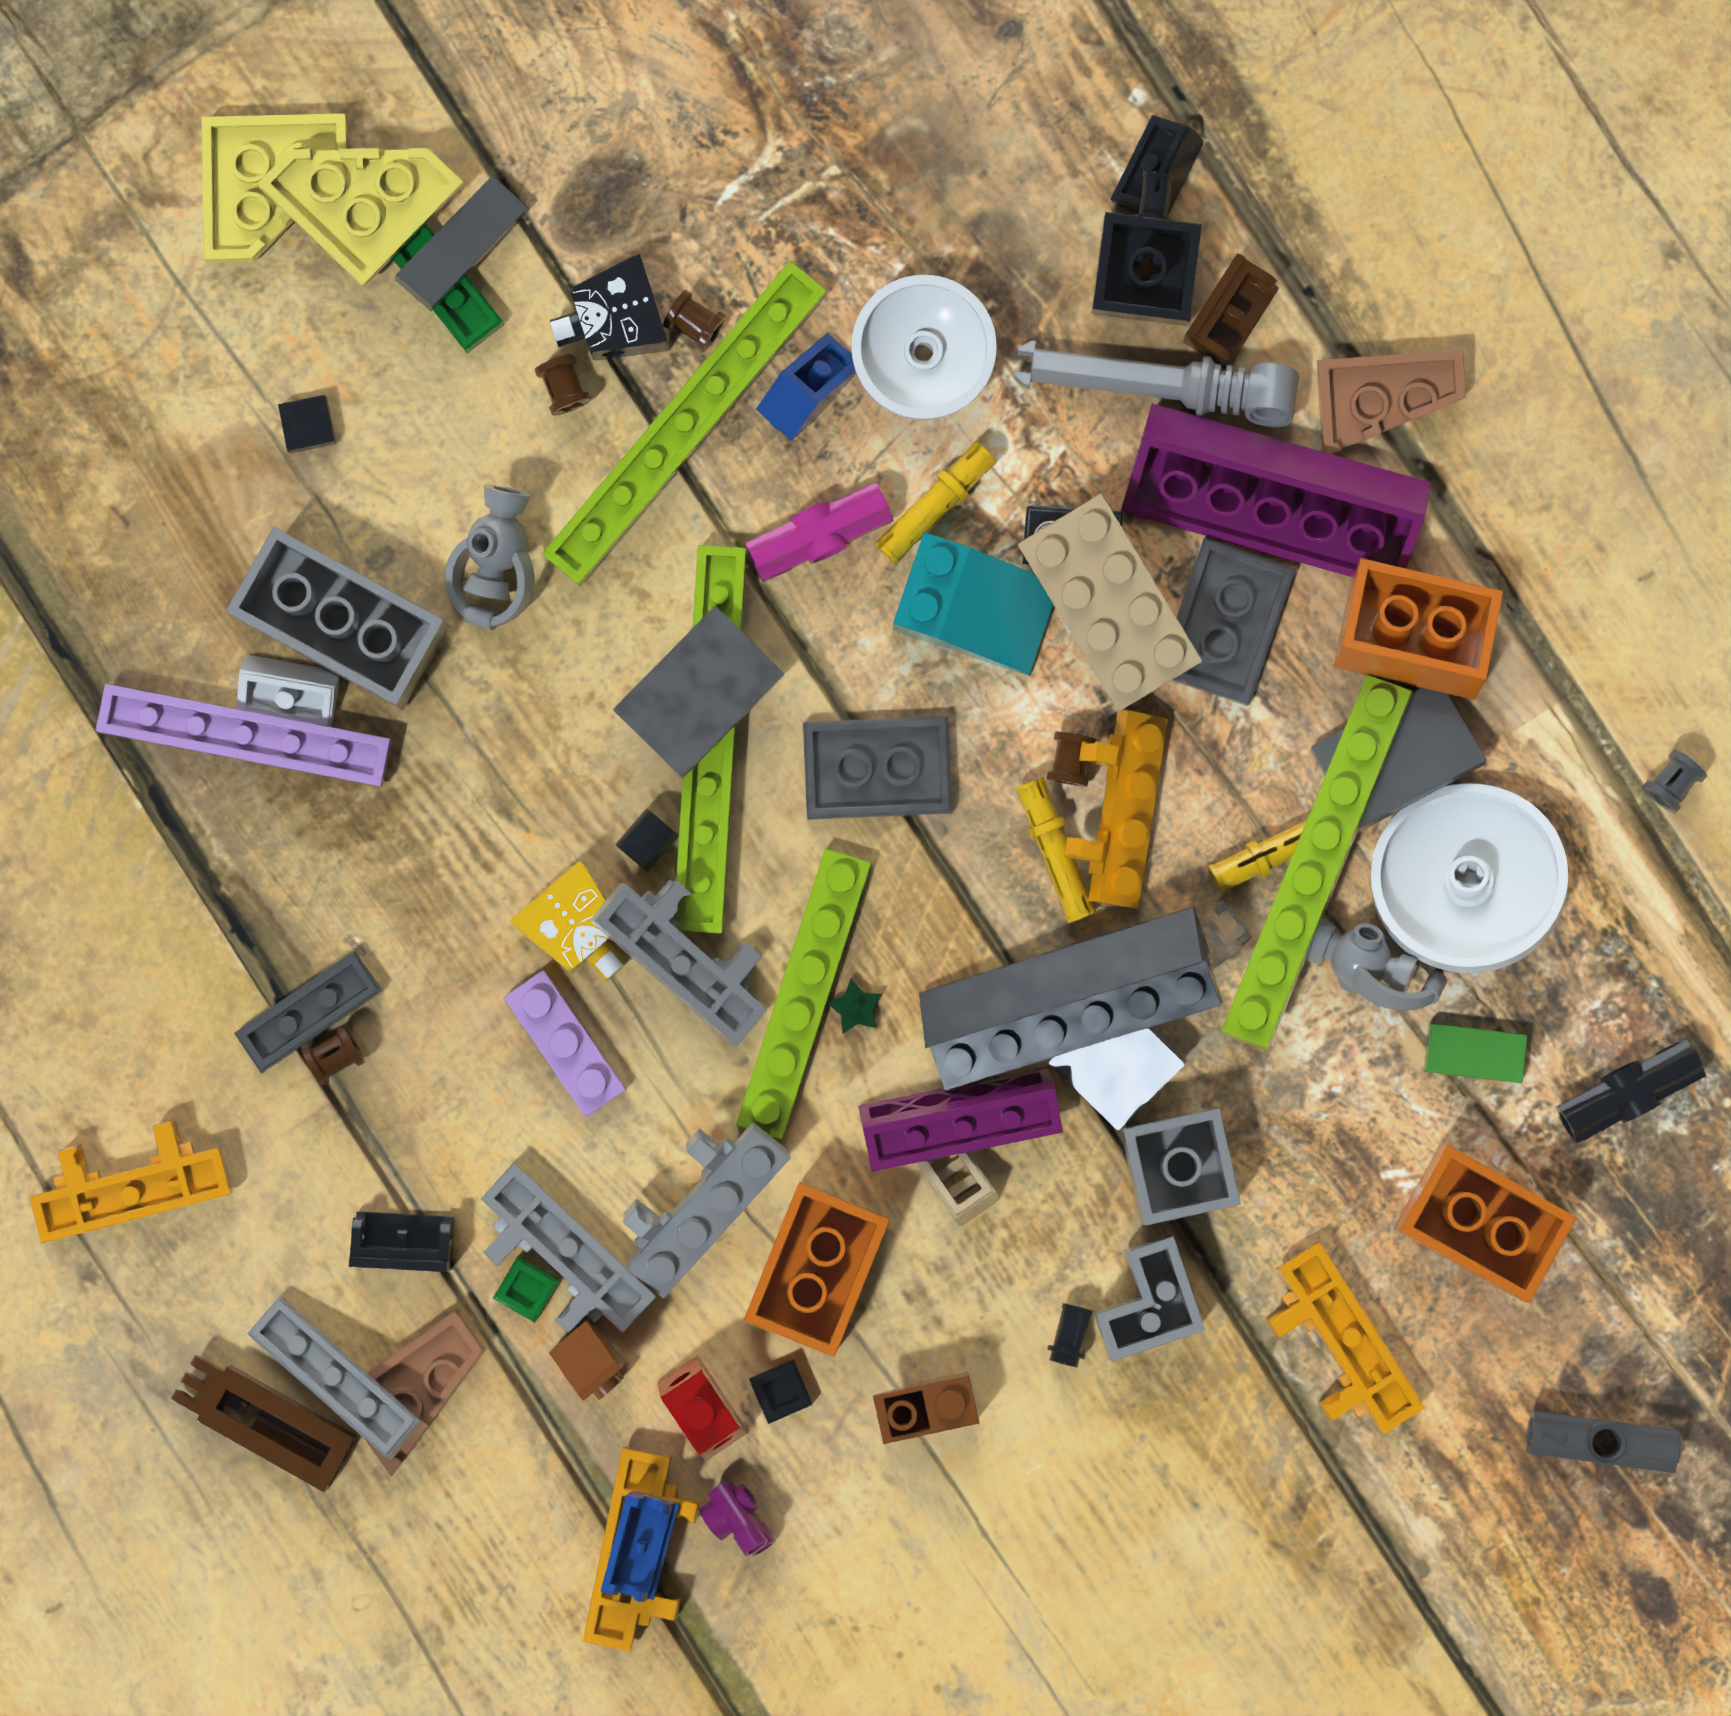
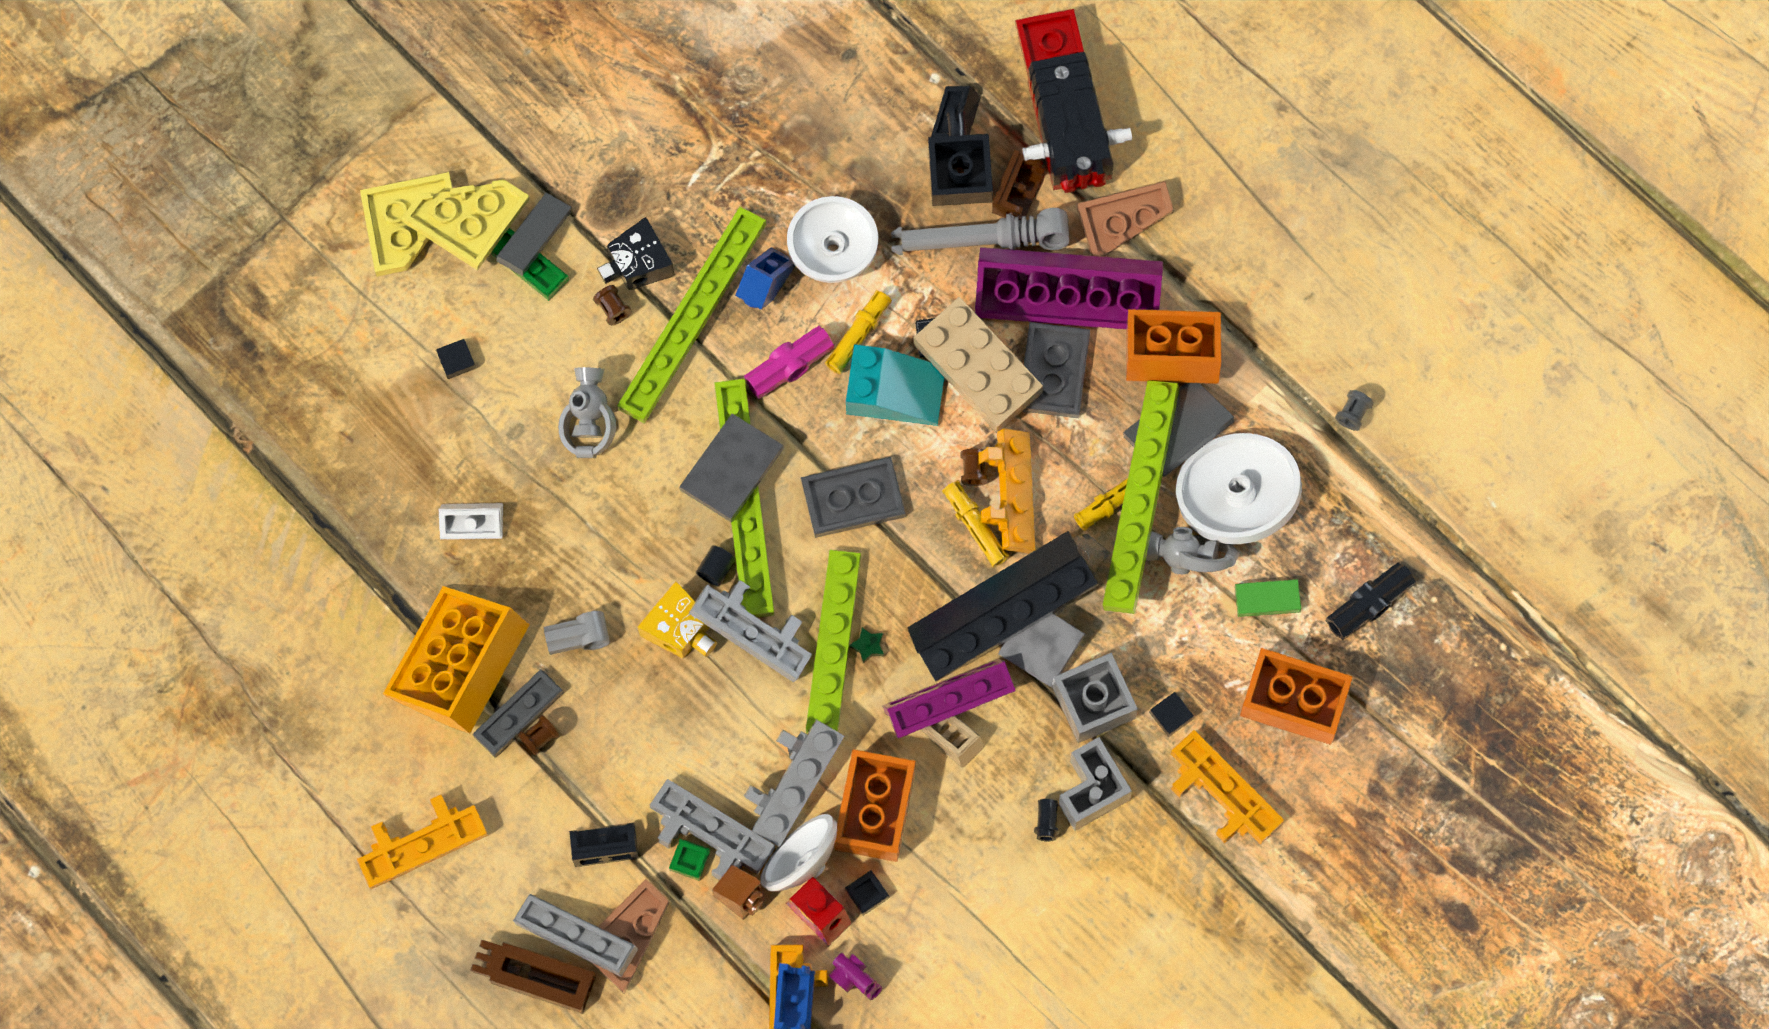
camera: 10 degrees left, 15 degrees down
(228, 911) = (457, 658): none -> light orange slope
(243, 735) = (447, 550): lavender plate -> none
(337, 618) = (496, 466): light grey brick -> none
(427, 907) = (585, 632): none -> light grey piece
(565, 1043) = (686, 701): lavender plate -> none
(689, 1327) = (801, 854): none -> white dish
(694, 320) = (687, 252): reddish brown bush -> none
(926, 1408) = (964, 879): dark orange slope -> none
(1291, 1207) = (1171, 714): none -> black tile
(1334, 186) = (1065, 103): none -> black piece
(1633, 1444) = (1424, 819): dark grey piece -> none

